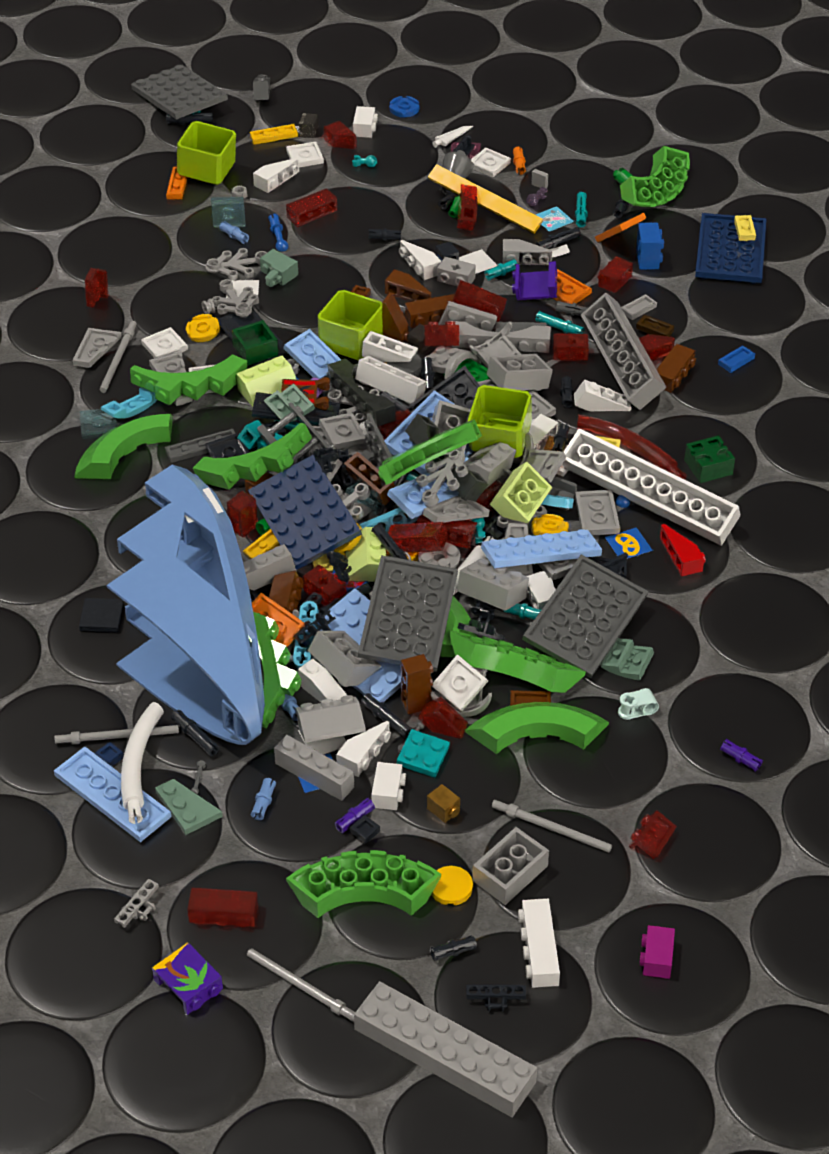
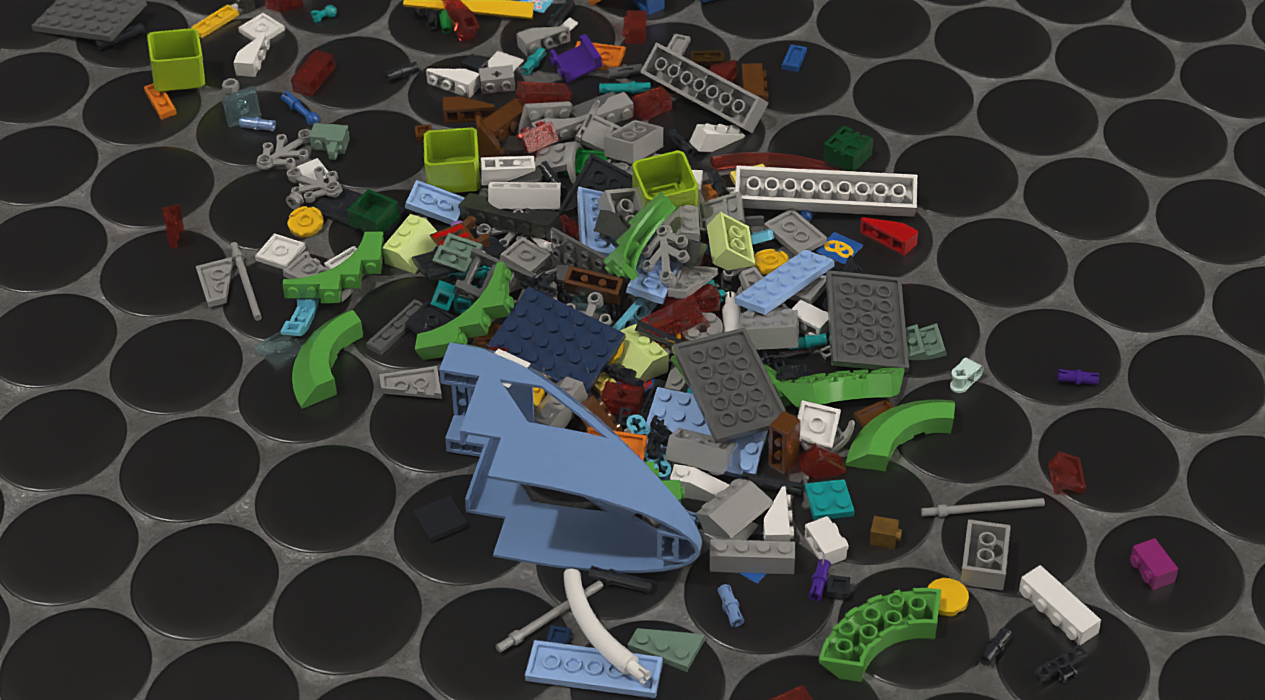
camera: 30 degrees left, 0 degrees up
(201, 765) = (648, 605): dark grey hinge -> none

